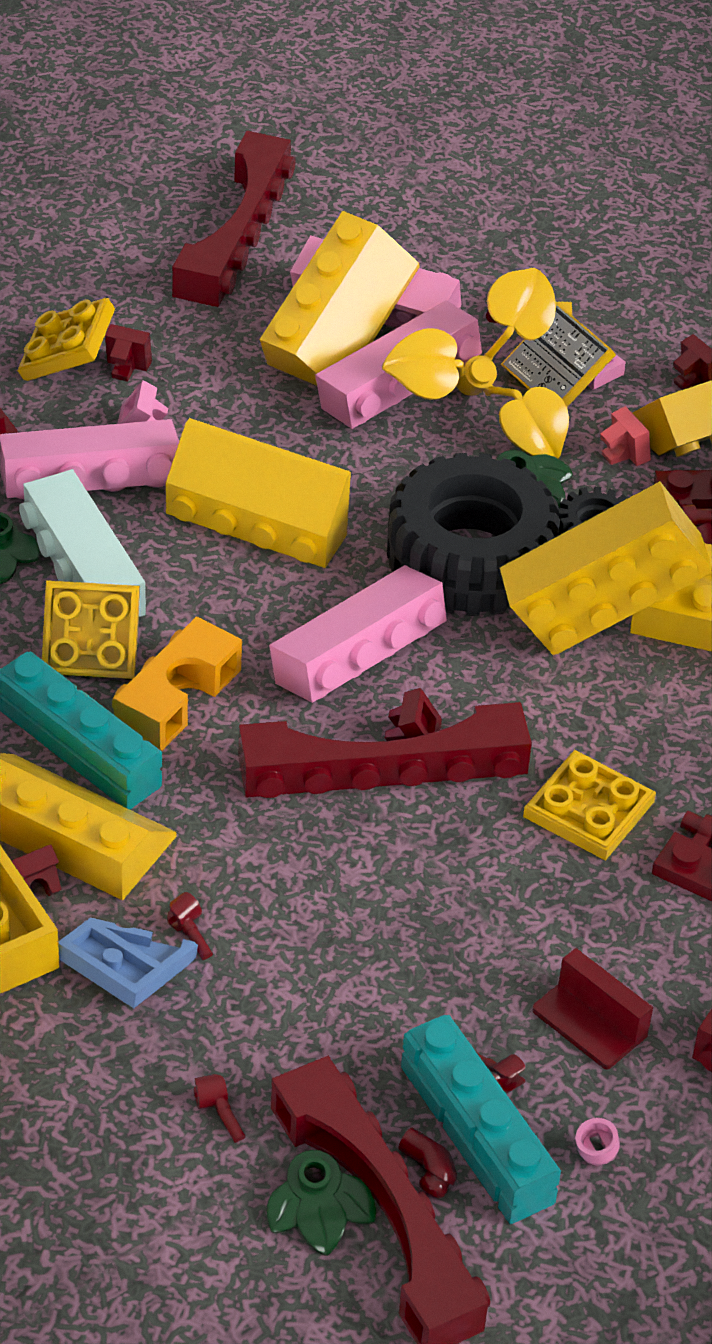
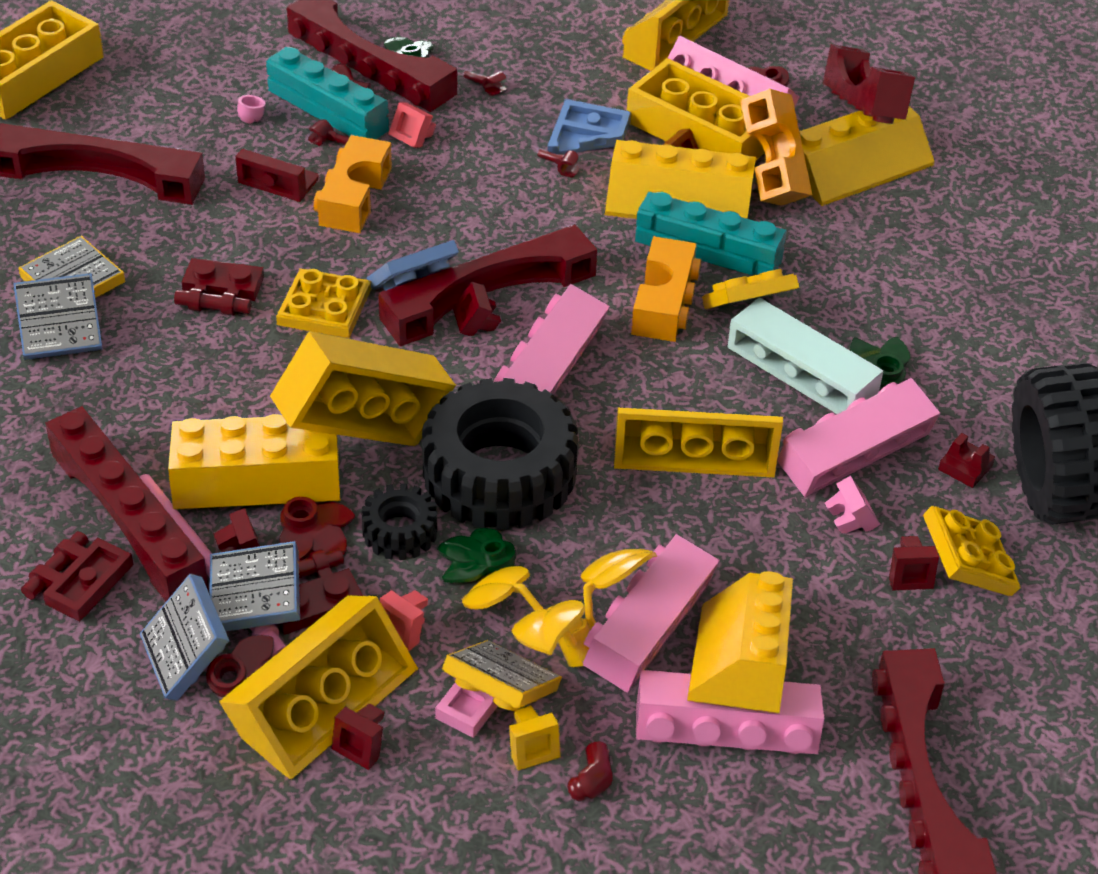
camera: 160 degrees right, 0 degrees up
(376, 1033) = (411, 125): none -> coral tile
(474, 777) = (413, 266): none -> medium blue tile
(476, 978) = (346, 192): none -> light orange arch

